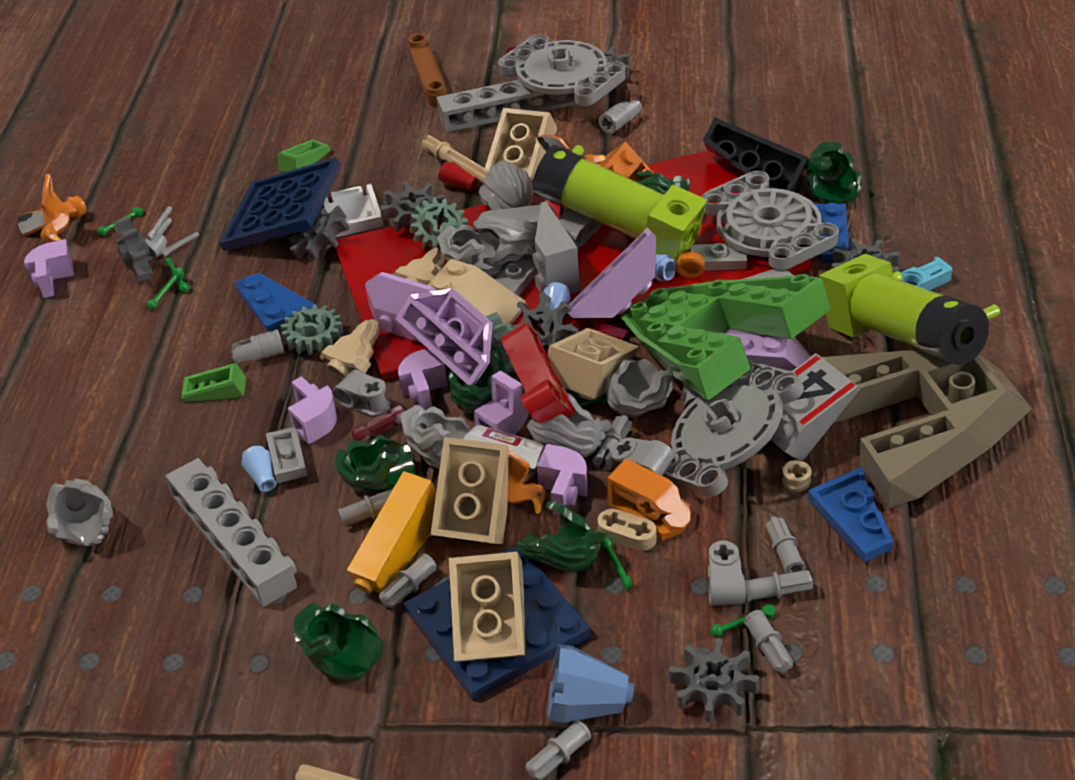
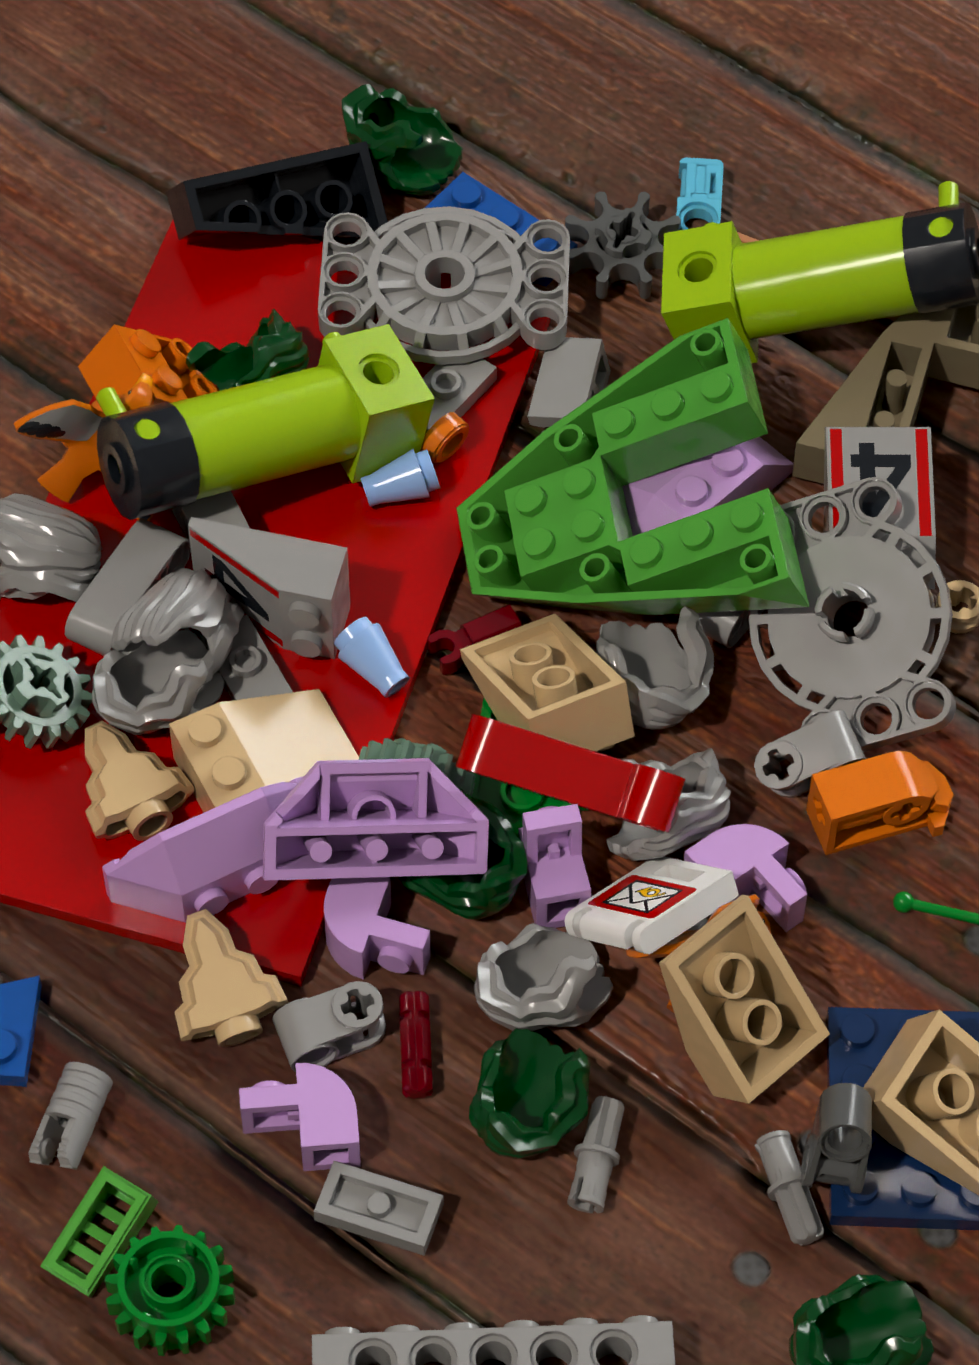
camera: 60 degrees left, 15 degrees up
(197, 414) = (170, 1320): none -> green gear
(259, 466) = (380, 1261): light blue cone -> none
(312, 329) = (74, 1009): sand green gear -> none
(395, 534) = (706, 1149): light orange slope -> none
(425, 566) = (839, 1138): none -> dark grey piece
(549, 319) = (422, 685): dark grey gear -> none
(569, 549) = (888, 948): dark green hair -> none
(618, 431) = (743, 796): light grey axle -> none
(619, 282) = (425, 544): lavender wedge -> none
(628, 529) = (897, 855): tan beam -> none

